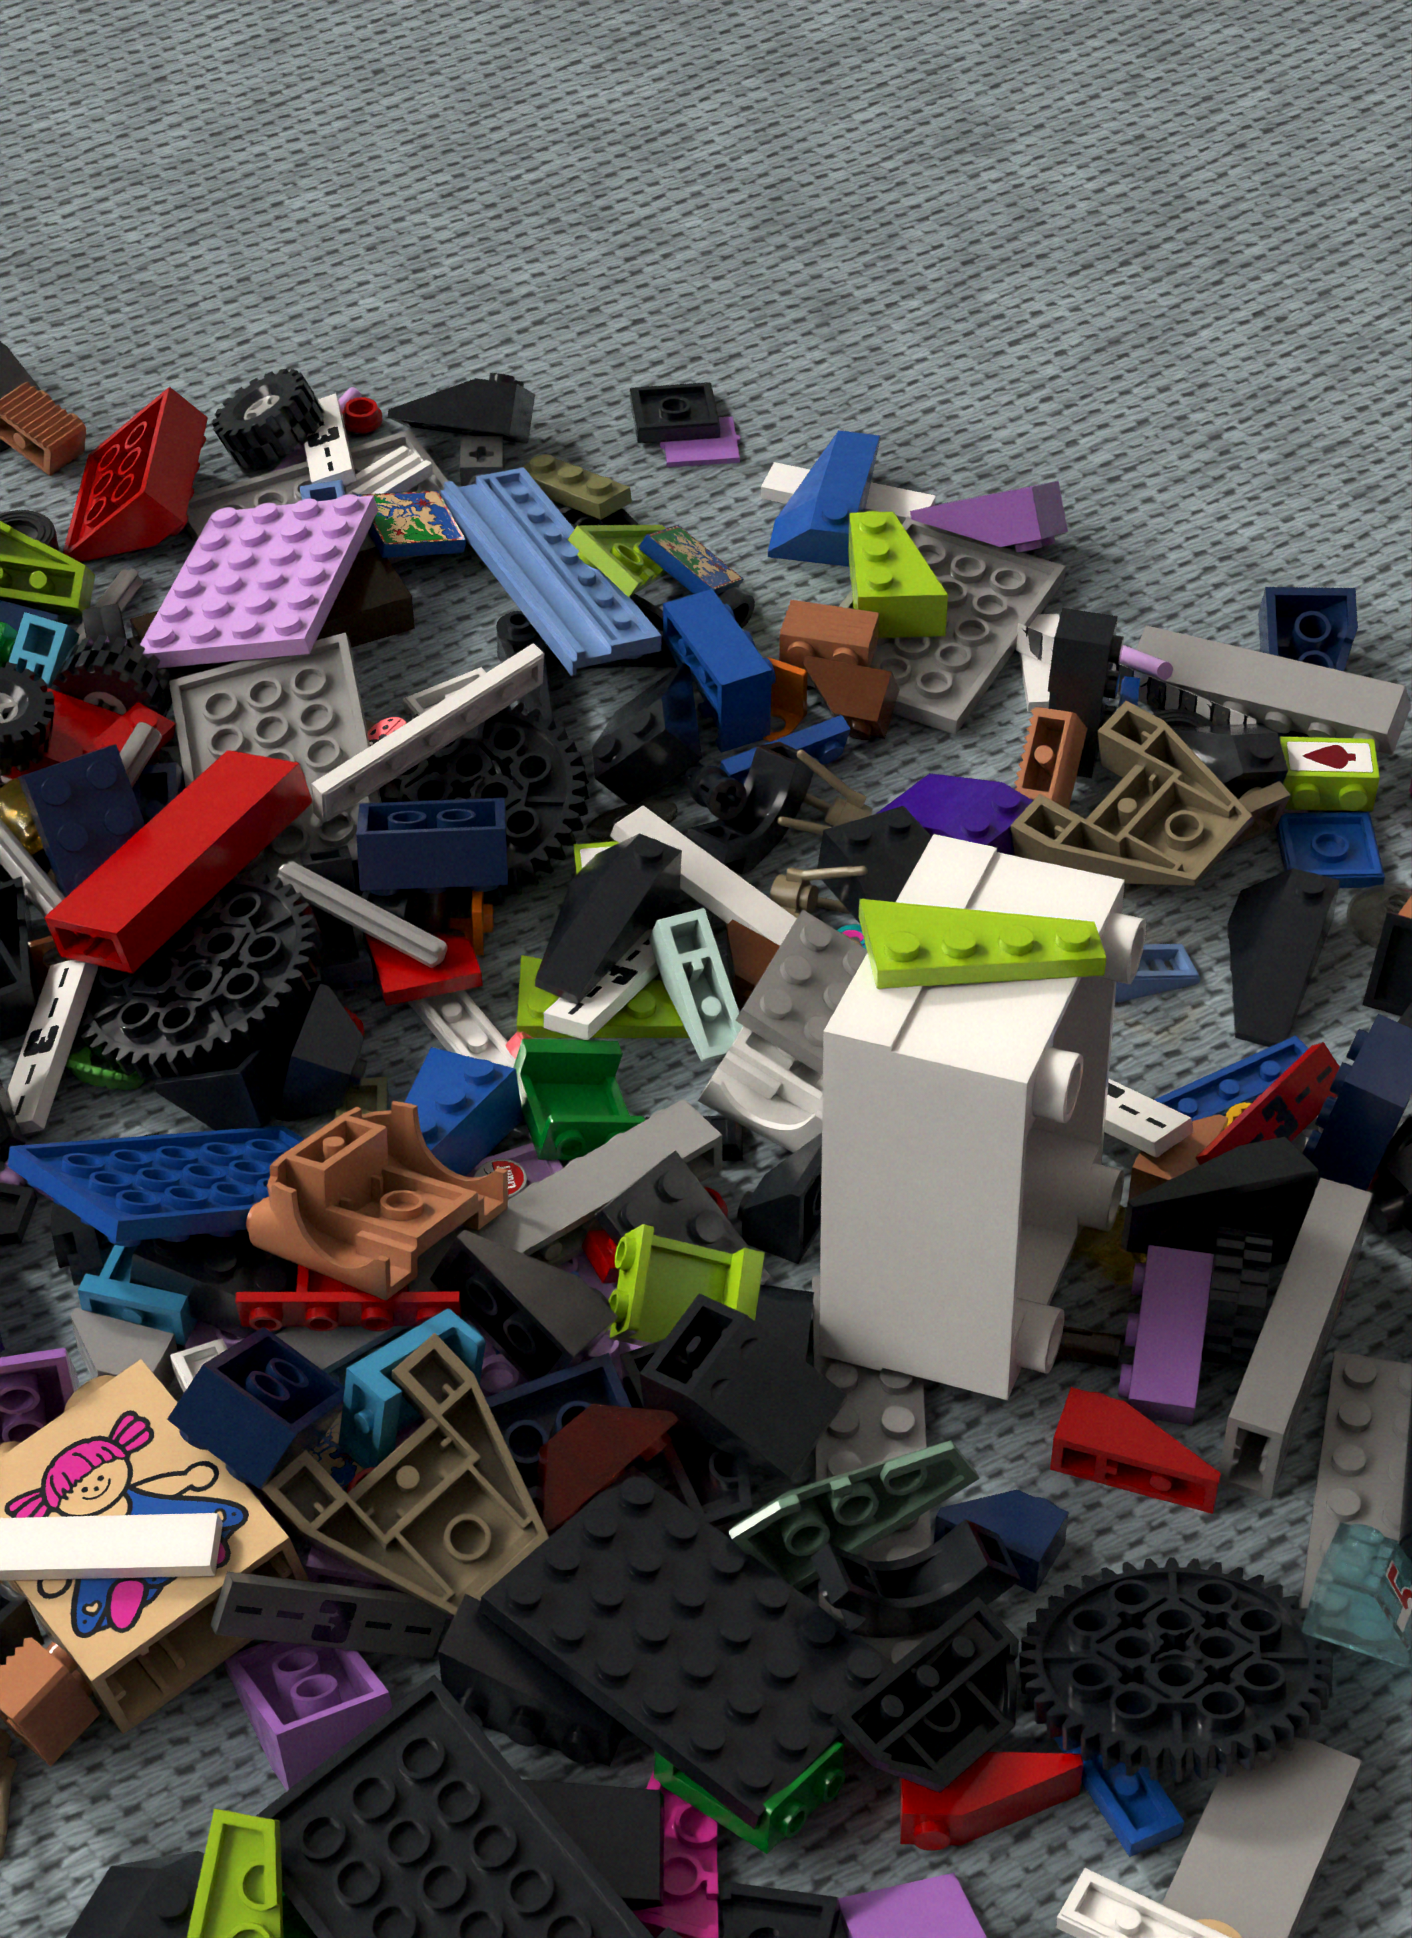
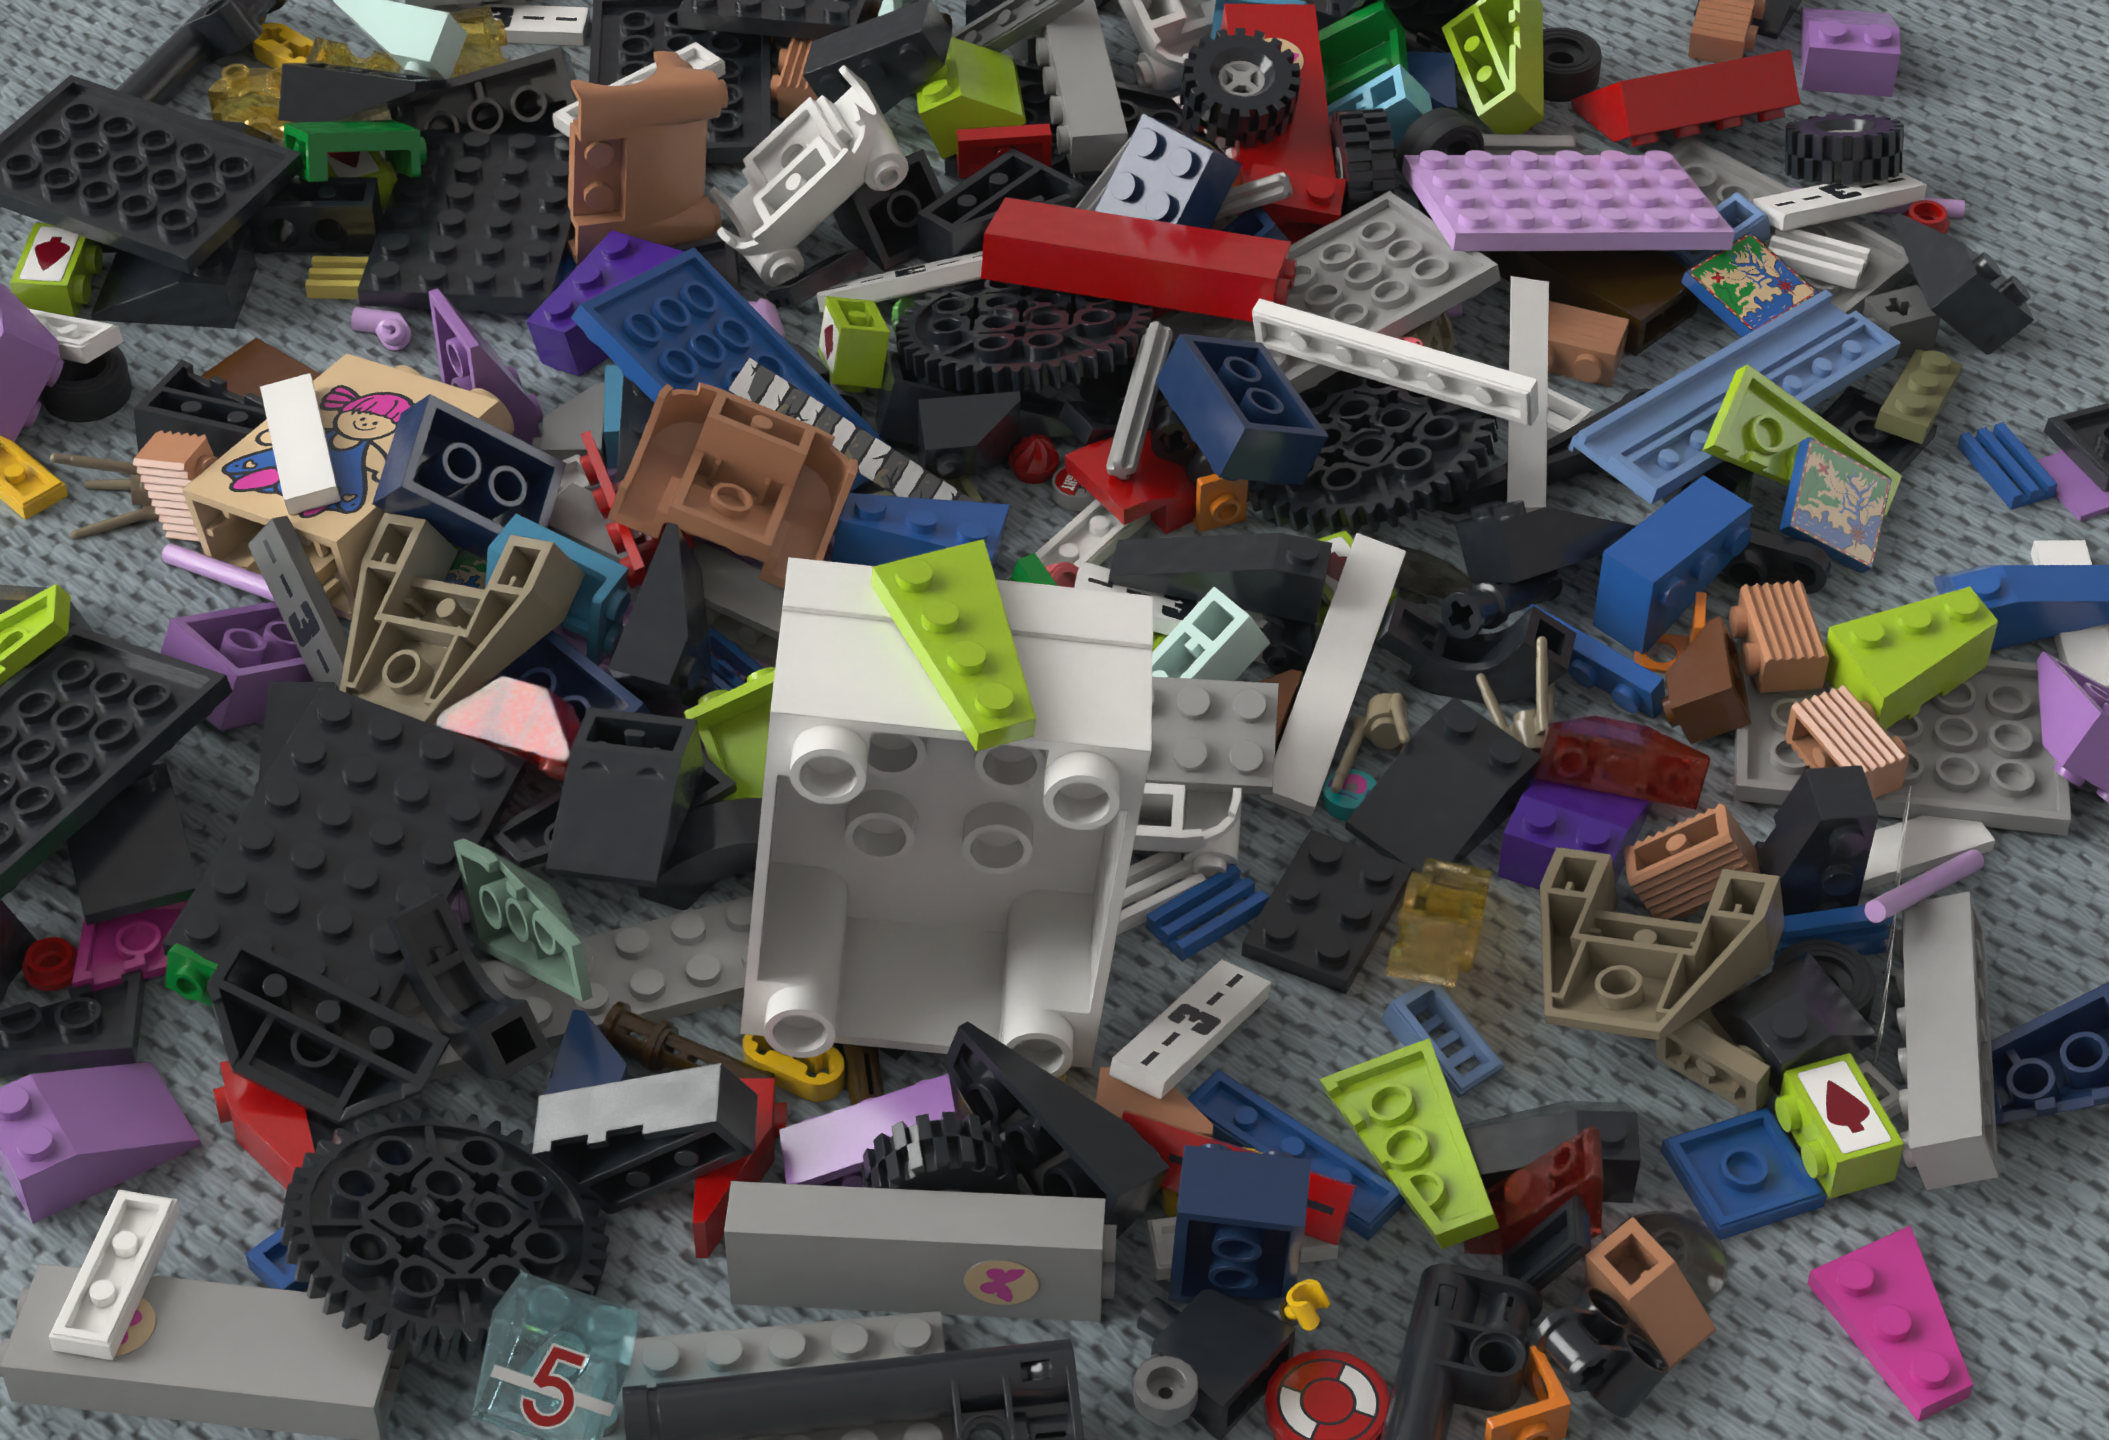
camera: 70 degrees right, 0 degrees up
(116, 377) = (1849, 51): none -> medium lavender slope
(129, 1101) = (853, 343): none -> lime brick
(169, 1701) = (216, 570): none -> lavender bar
(272, 1139) = (875, 458): none -> sticker
(387, 1021) = (1069, 492): none -> light grey tile
(397, 650) = (1585, 343): none -> nougat brick
(474, 668) = (1530, 358): none -> white sticker
(666, 473) = (2014, 463): none -> blue tile
(914, 764) = (1623, 760): none -> clear red slope
(962, 643) = (1845, 732): none -> nougat brick
(1026, 1397) = (793, 1073): none -> yellow beam
(1035, 1426) = (662, 1040): none -> dark brown pin
(1125, 1473) = (645, 1132): none -> black wedge
(1252, 1005) = (1416, 1137): none -> lime wing
(1350, 948) = (1541, 1189): none -> clear red slope

